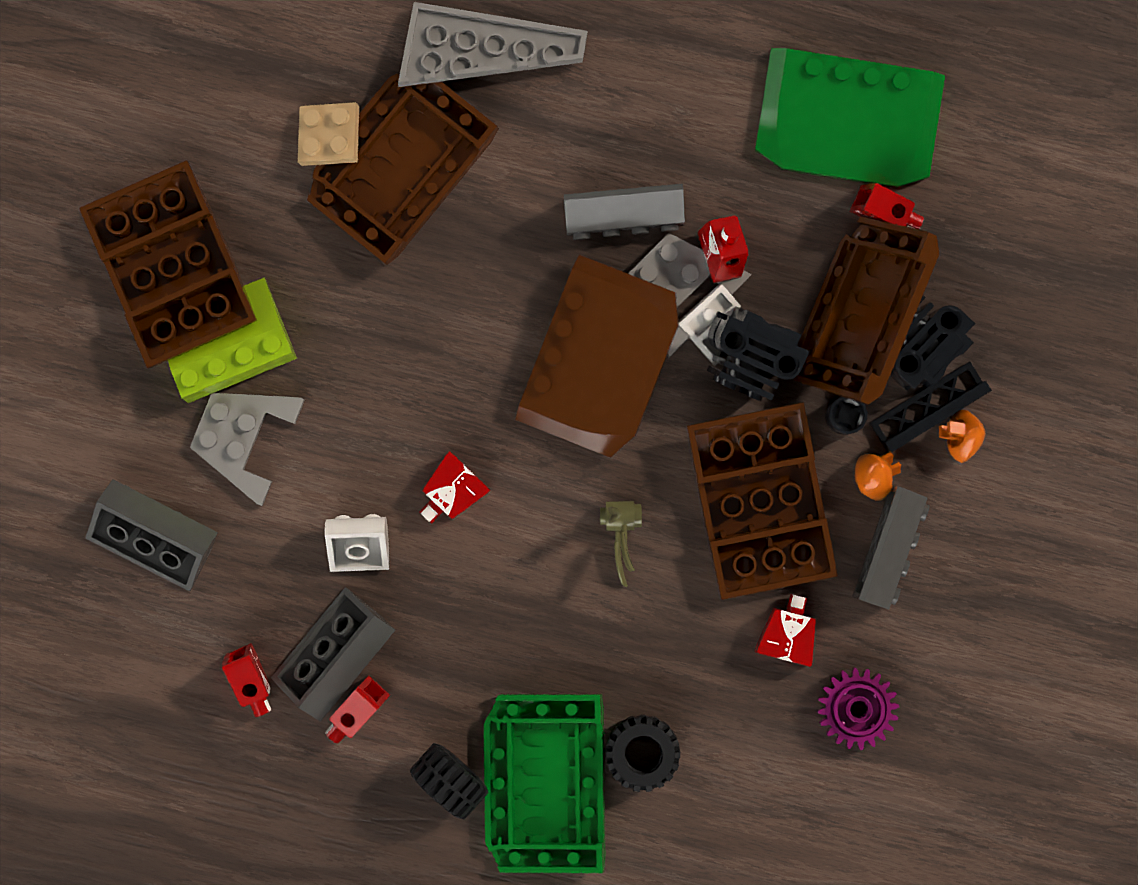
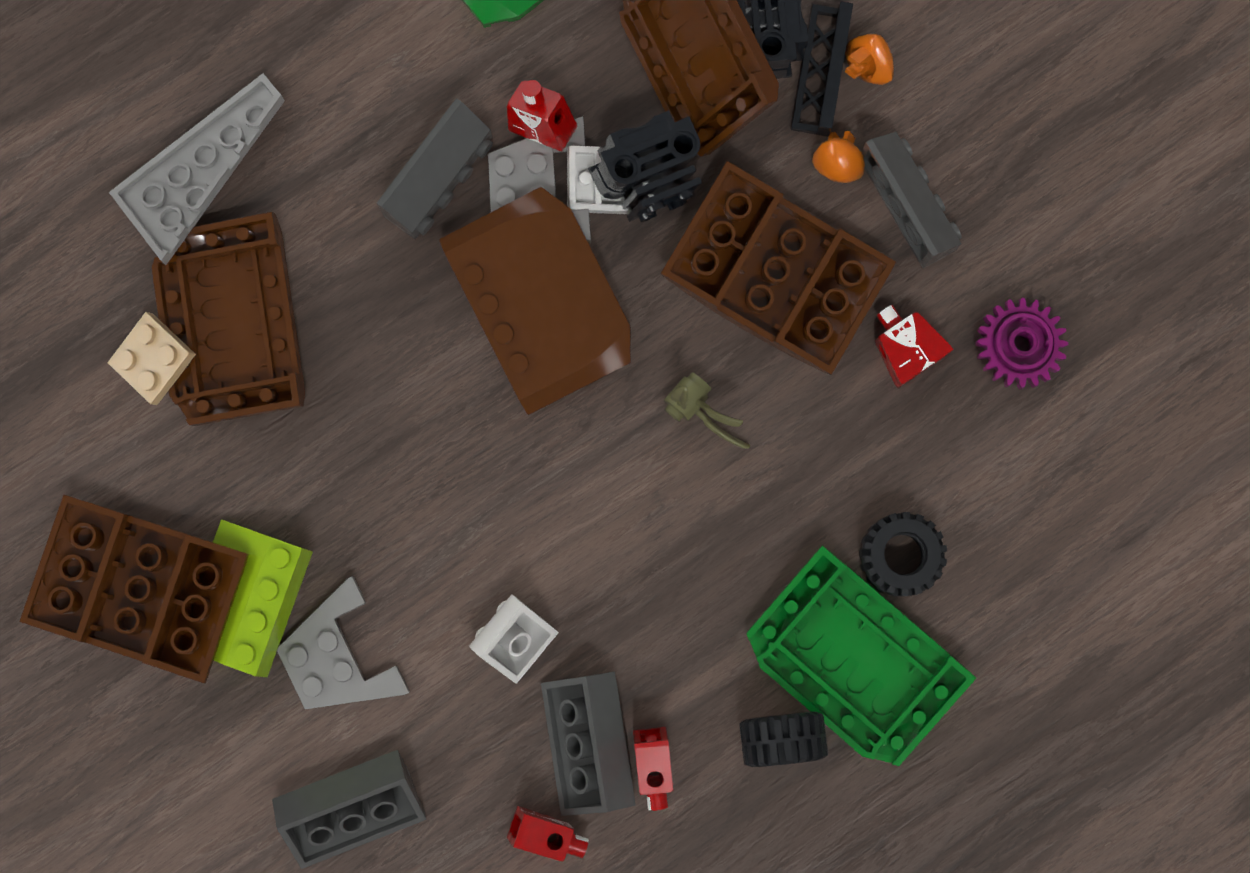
camera: 45 degrees left, 5 degrees down
(452, 489) = (539, 518): red torso -> none
(846, 416) = (768, 139): black wheel -> none

